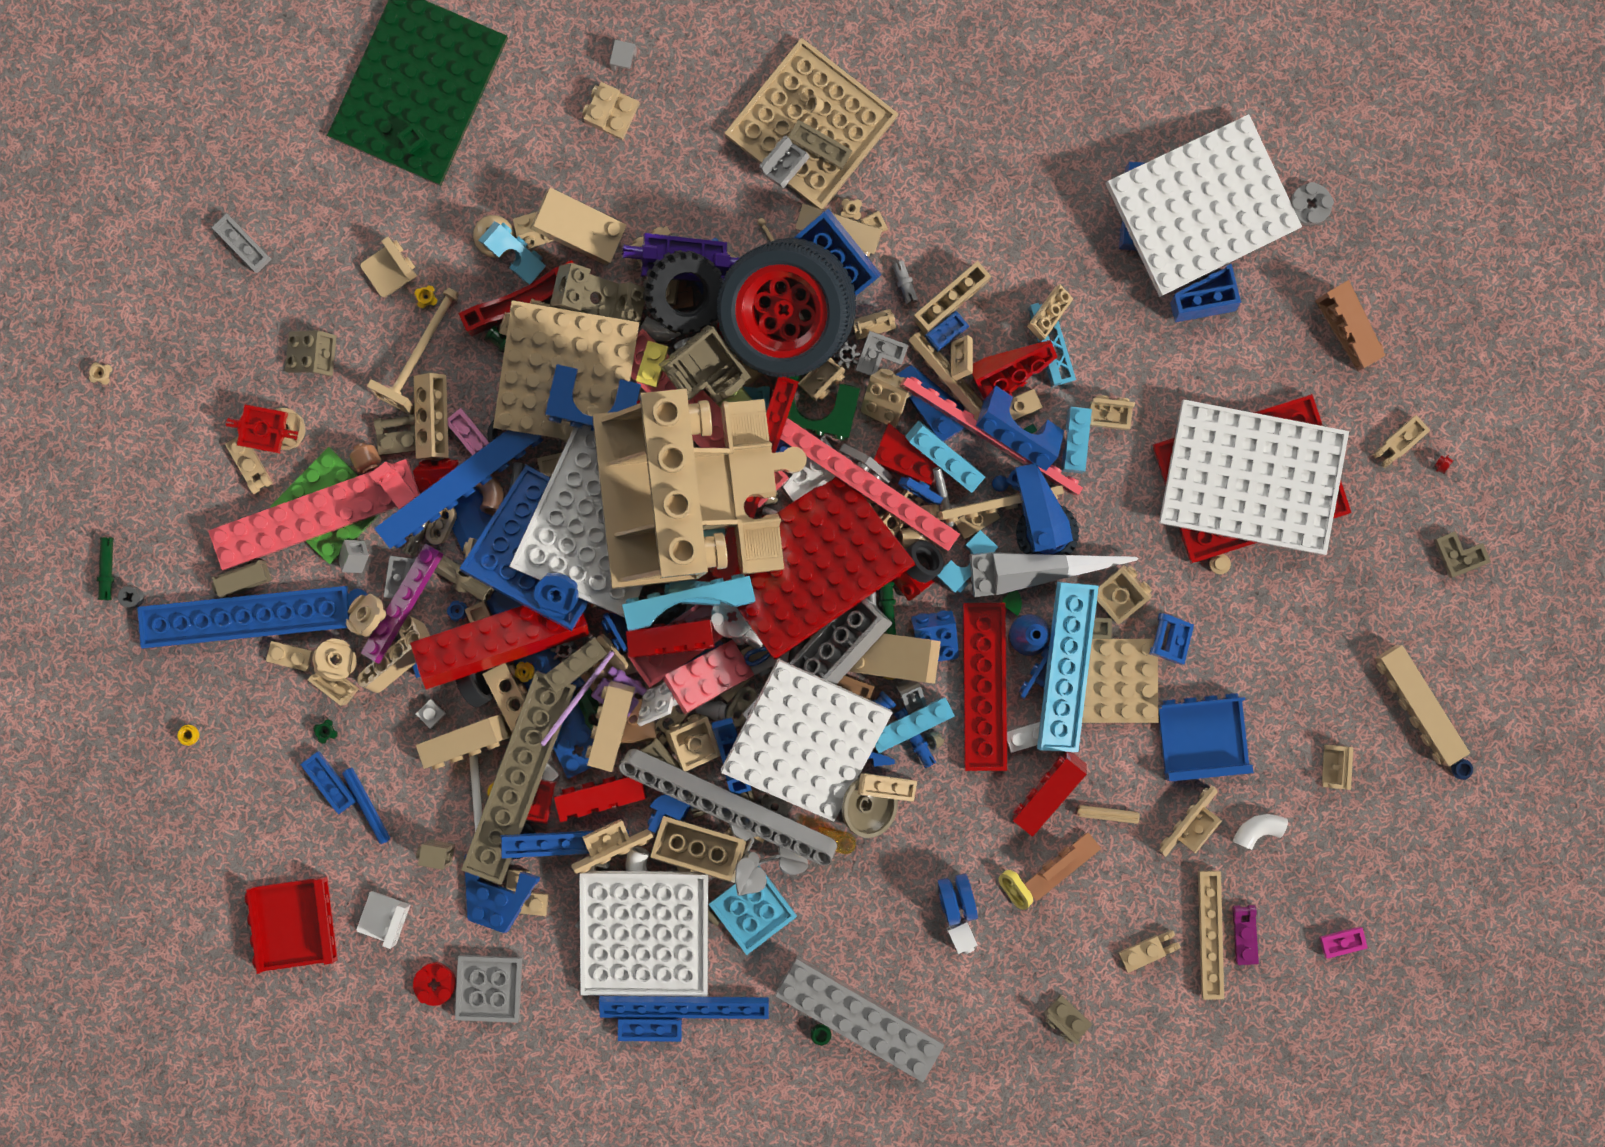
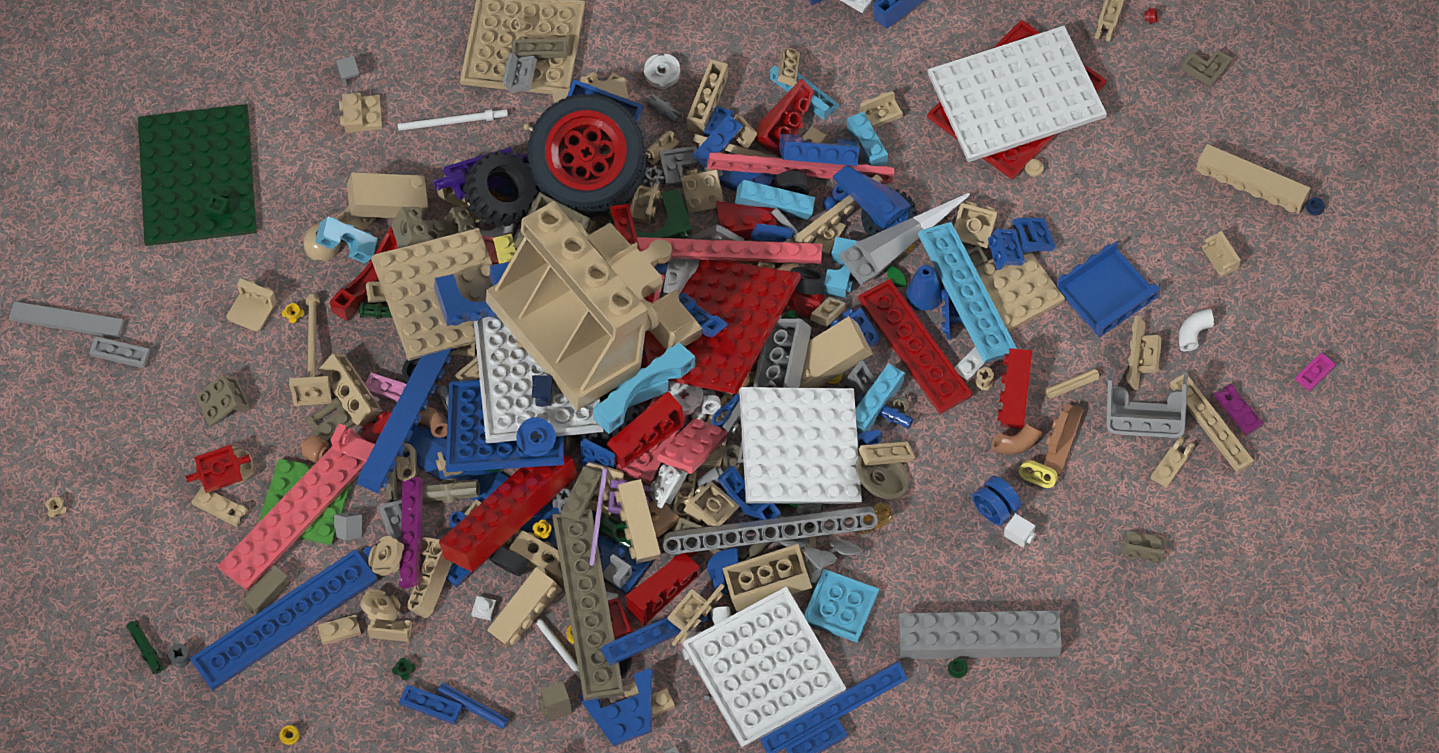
camera: 30 degrees left, 25 degrees down
(211, 176) = (66, 320): none -> light grey tile
(566, 758) = (617, 572): none -> light grey panel
(590, 548) = (542, 390): none -> dark blue brick
(730, 187) = (488, 115): none -> white bar
(792, 549) = (710, 324): none -> blue slope
(924, 603) = (828, 311): none -> tan plate
(929, 357) = (718, 139): none -> blue plate
(932, 228) = (662, 80): none -> white plate
(972, 447) = (792, 181): none -> black tyre
(1017, 846) = (1017, 443): none -> nougat cylinder
(1035, 762) = (988, 382): none -> tan bush
(1134, 641) = (1005, 248): none -> blue bracket
(1156, 894) = (1146, 418): none -> light grey windscreen

